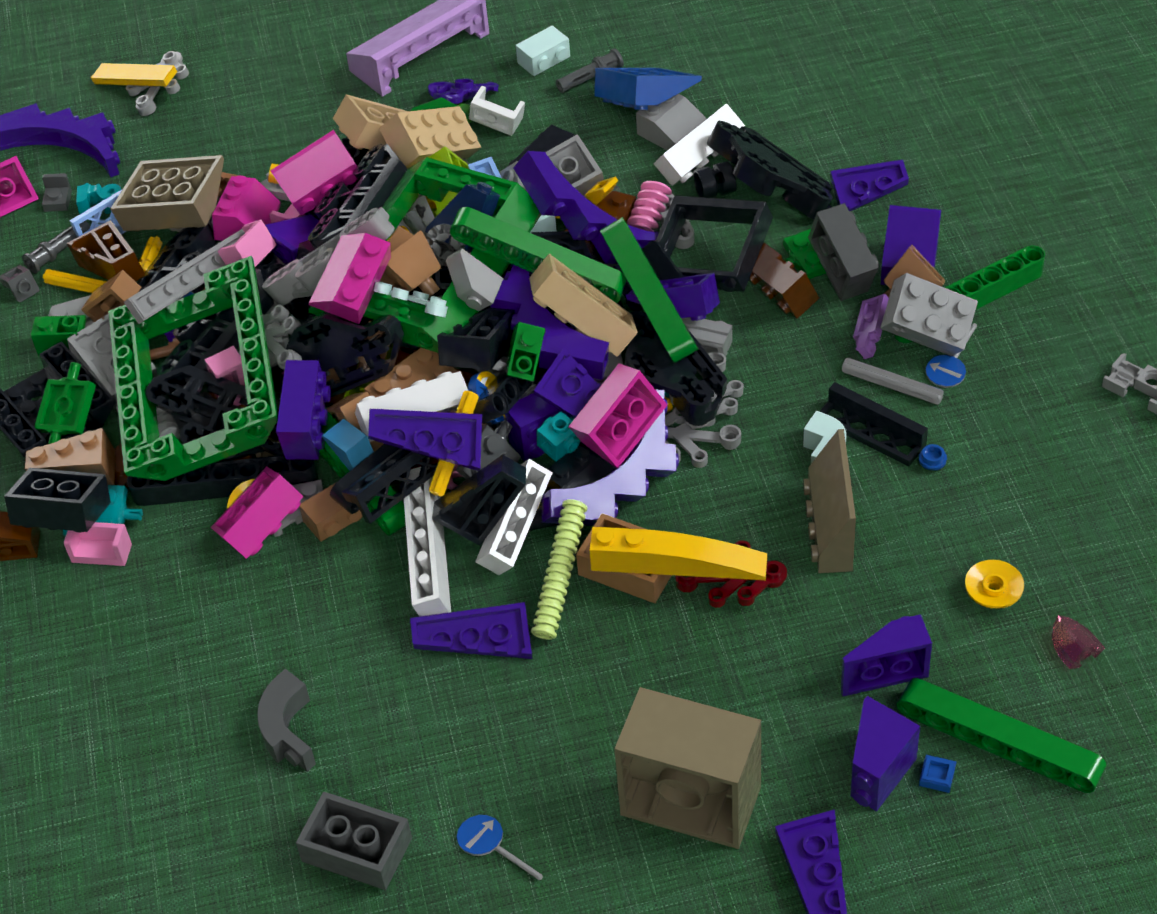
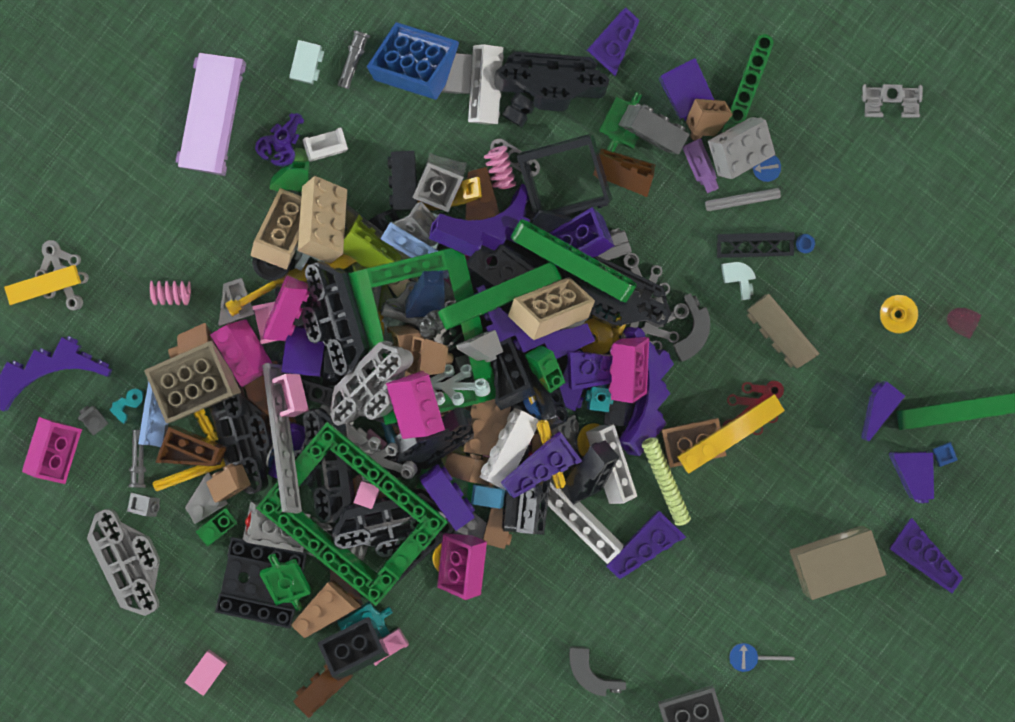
camera: 40 degrees left, 40 degrees up
(235, 139) = (170, 293): none -> bright pink piece
(729, 467) = (698, 336): none -> dark grey arch

